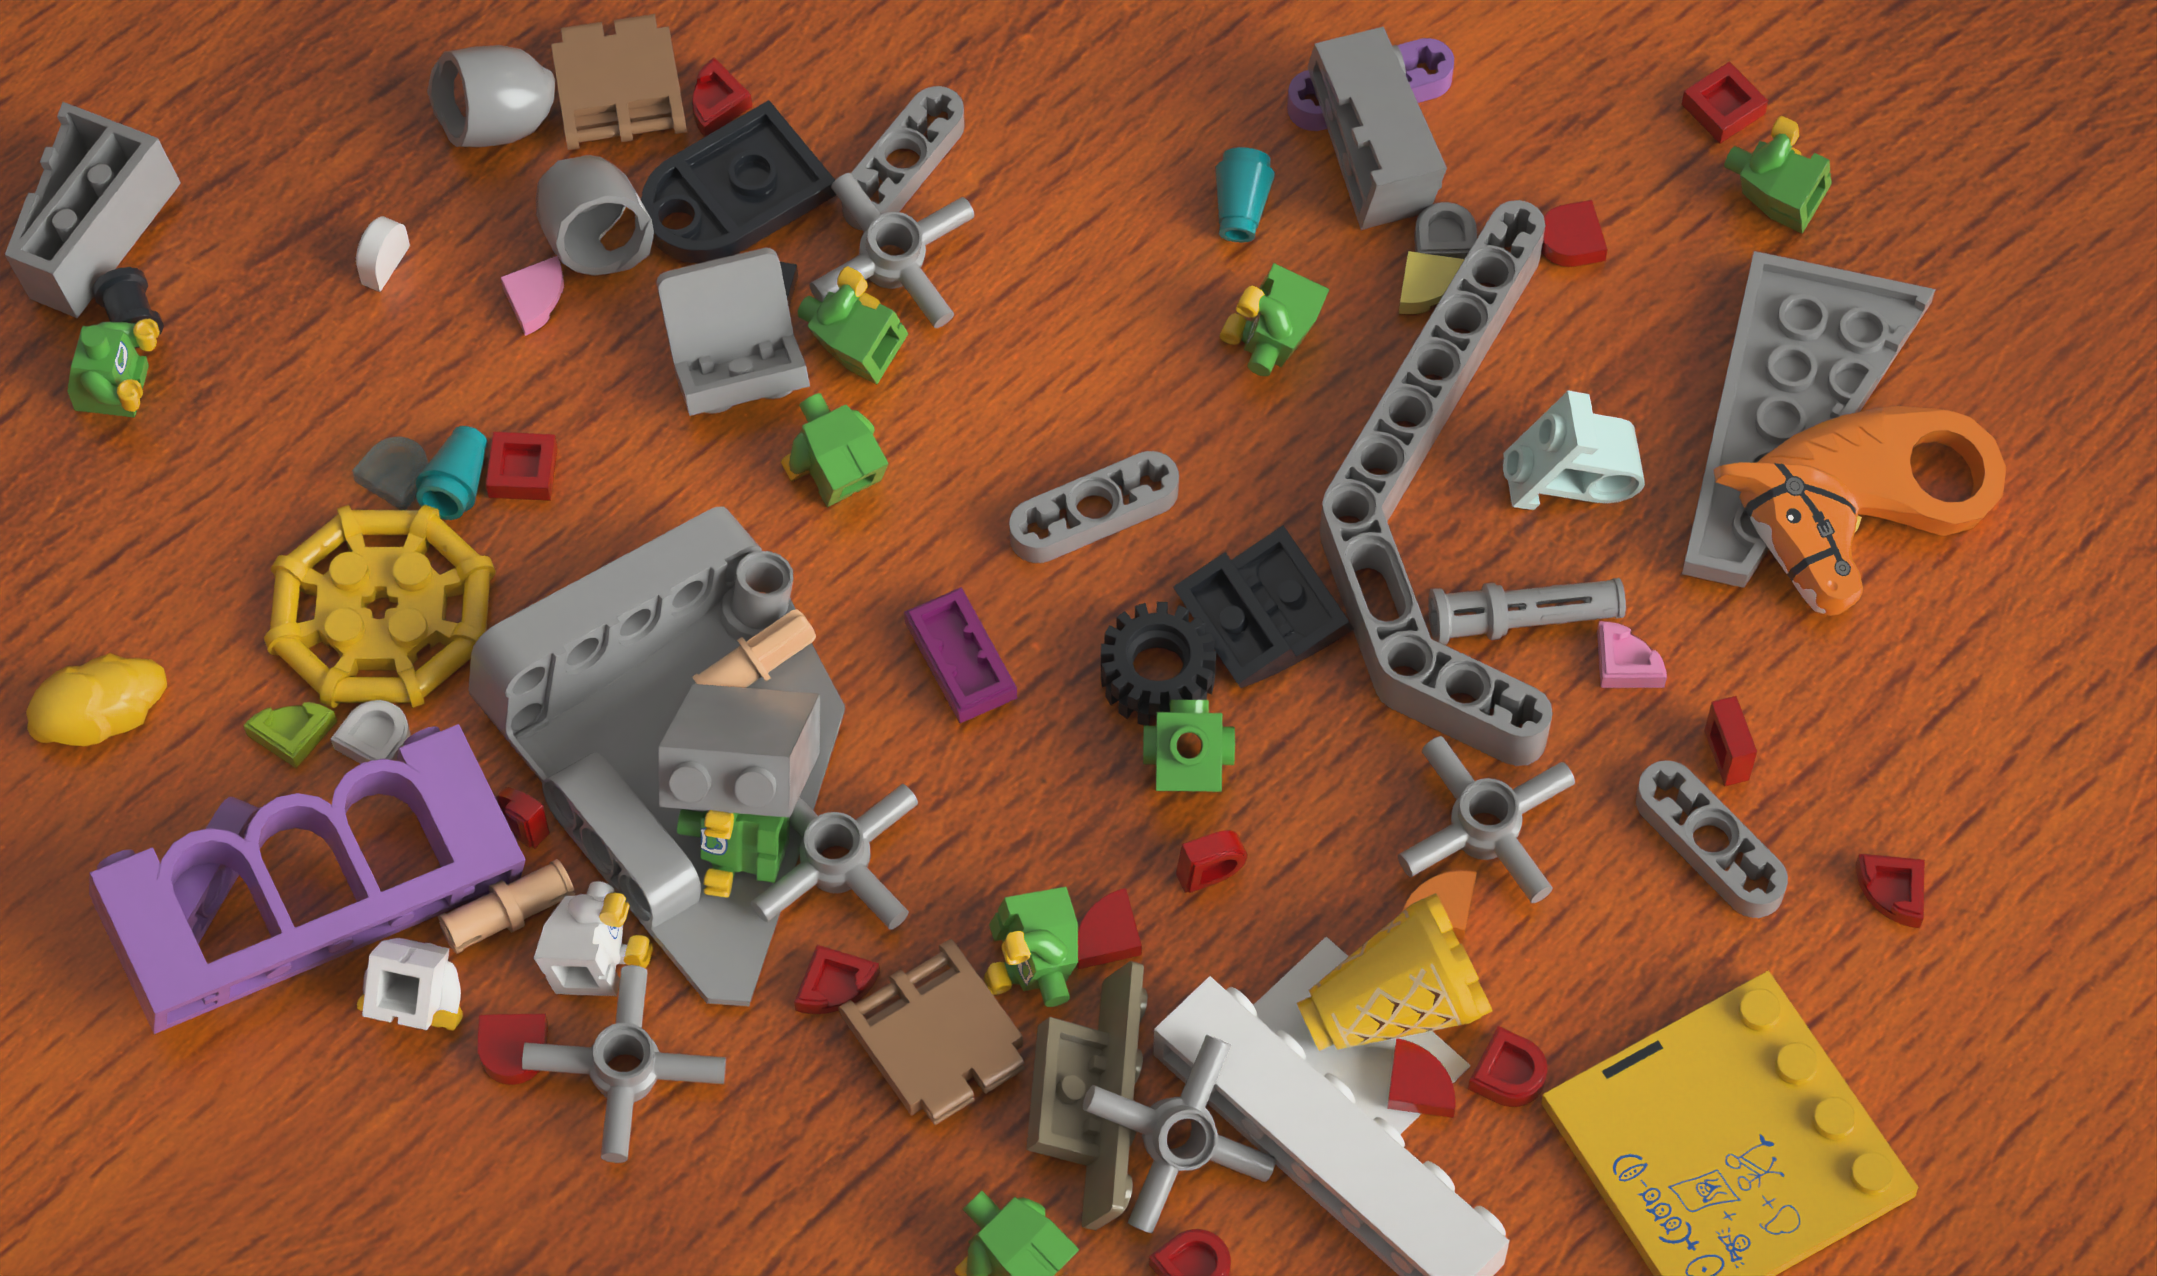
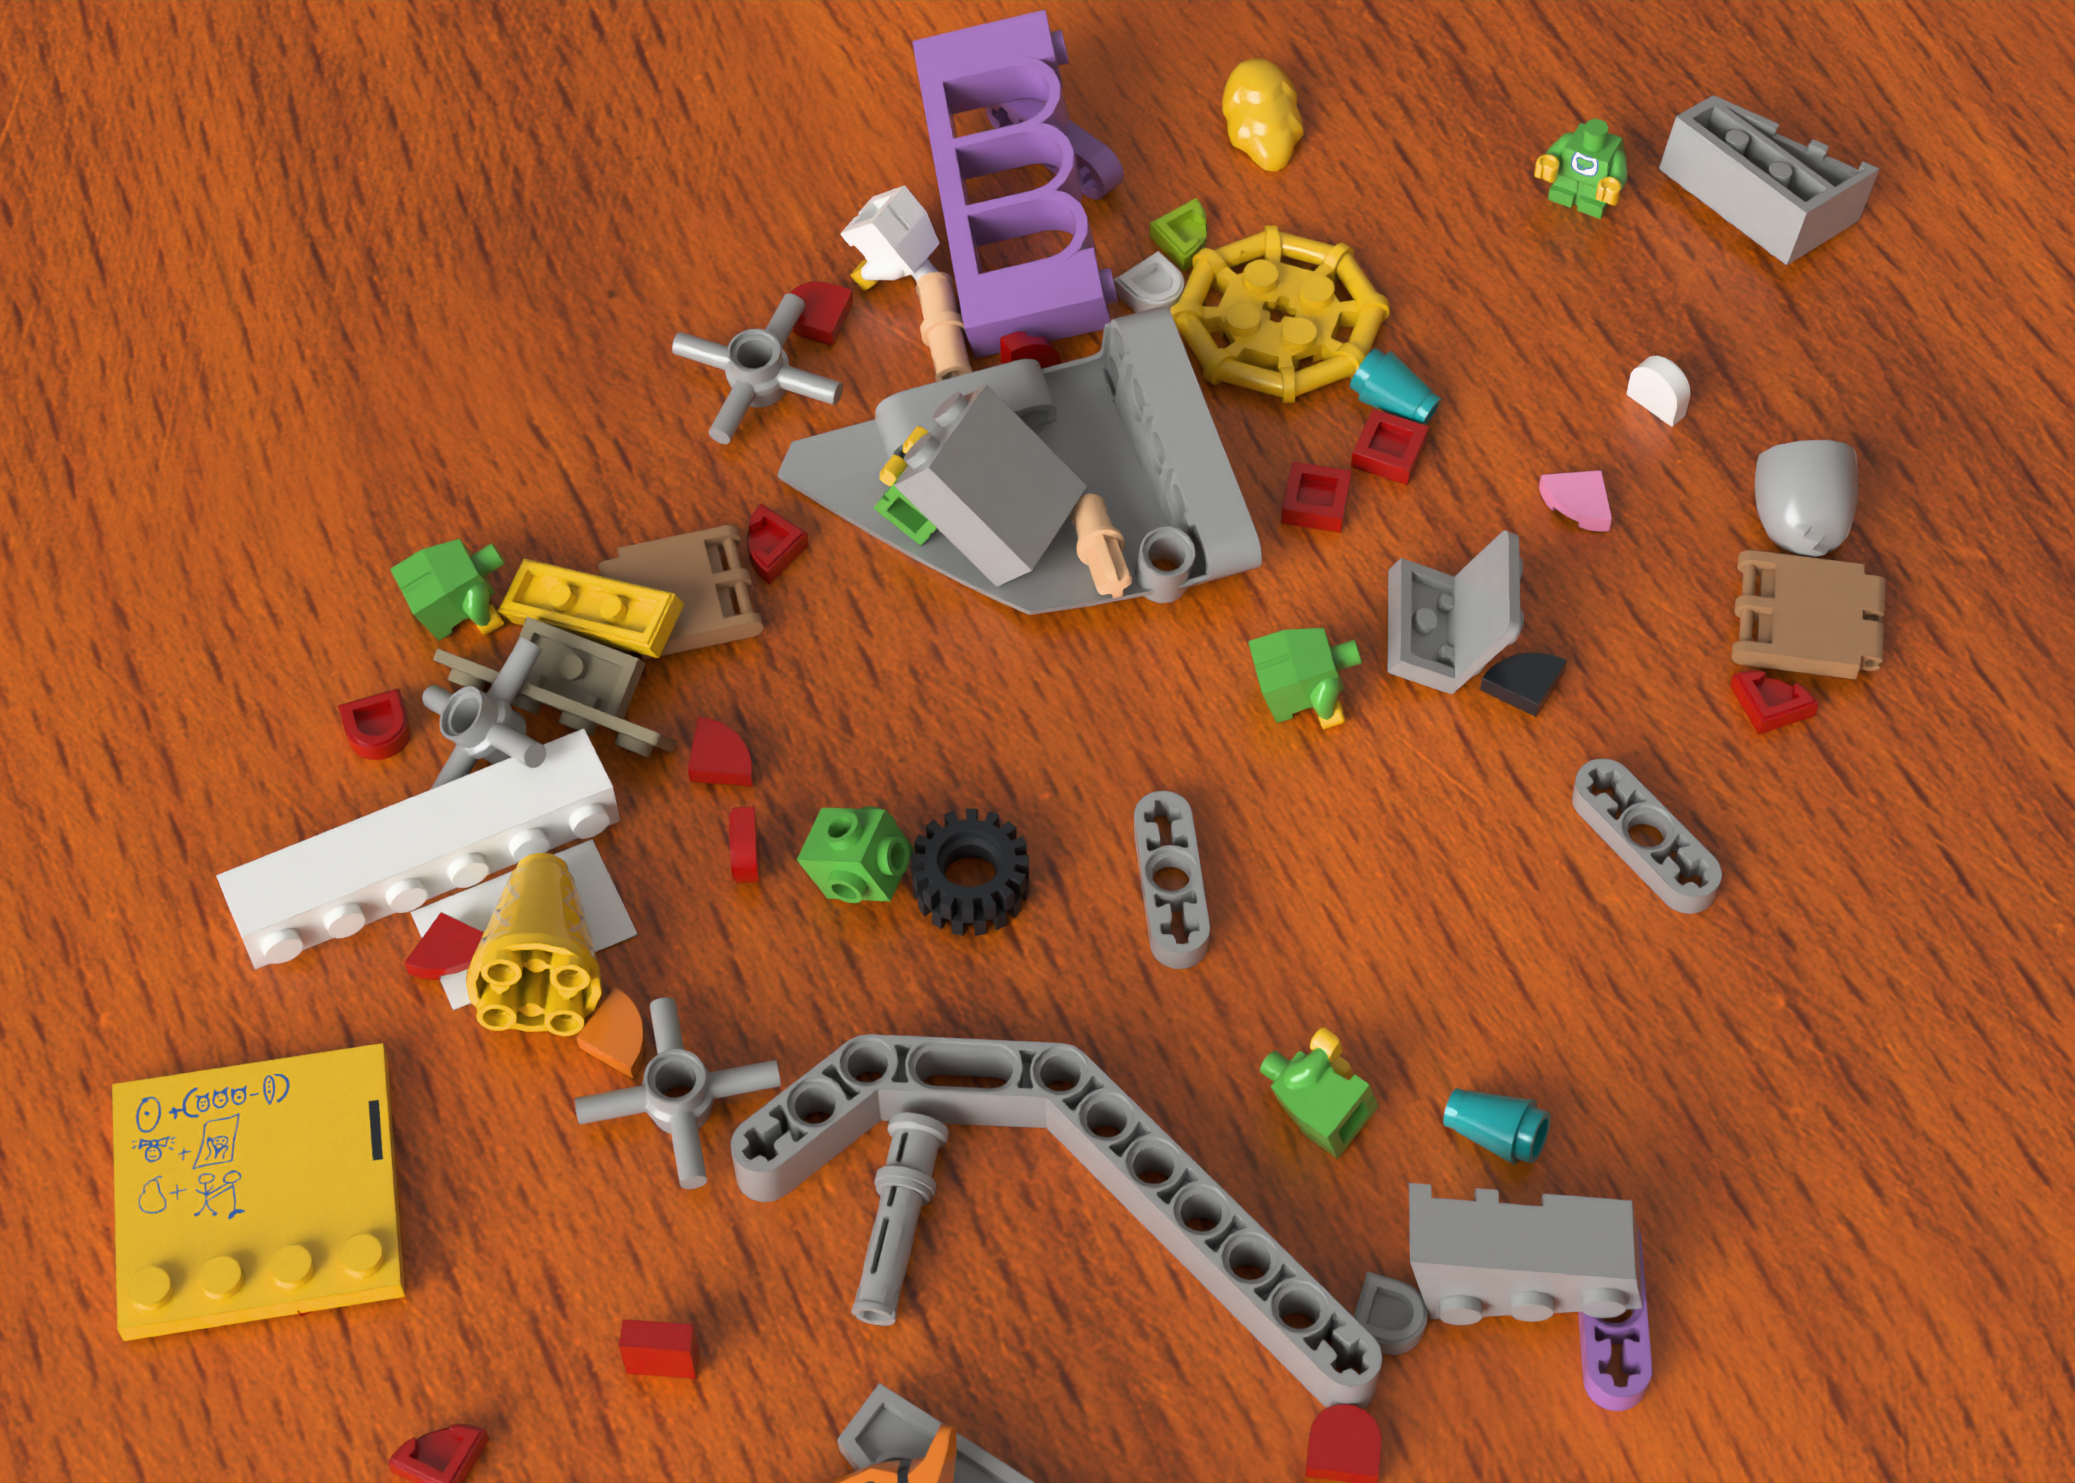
camera: 110 degrees right, 5 degrees down
(124, 296) = (1655, 199): black bush -> none
(392, 470) = (1423, 353): clear light blue tile -> none
(582, 202) = (1642, 534): light grey piece -> none
(585, 943) = (875, 363): white piece -> none
(606, 512) = (1316, 497): none -> red tile
(735, 187) = (1650, 683): black plate -> none
(842, 873) = (878, 581): light grey bar -> none
(855, 326) = (1435, 723): bright green piece -> none
(901, 231) = (1529, 803): light grey bar -> none
(960, 655) = (1049, 717): magenta plate -> none
(995, 1097) = (593, 607): none -> yellow tile
(1037, 944) = (719, 682): bright green piece -> none
(1264, 608) = (1001, 982): black slope -> none
(1426, 281) = (1335, 1267): light yellow tile -> none
(1510, 1070) = (427, 1034): red tile -> none
(1574, 456) = (1040, 1324): light aqua pin -> none
(1627, 660) = (806, 1302): bright pink tile -> none
(1729, 884) = (515, 1298): light grey beam -> none

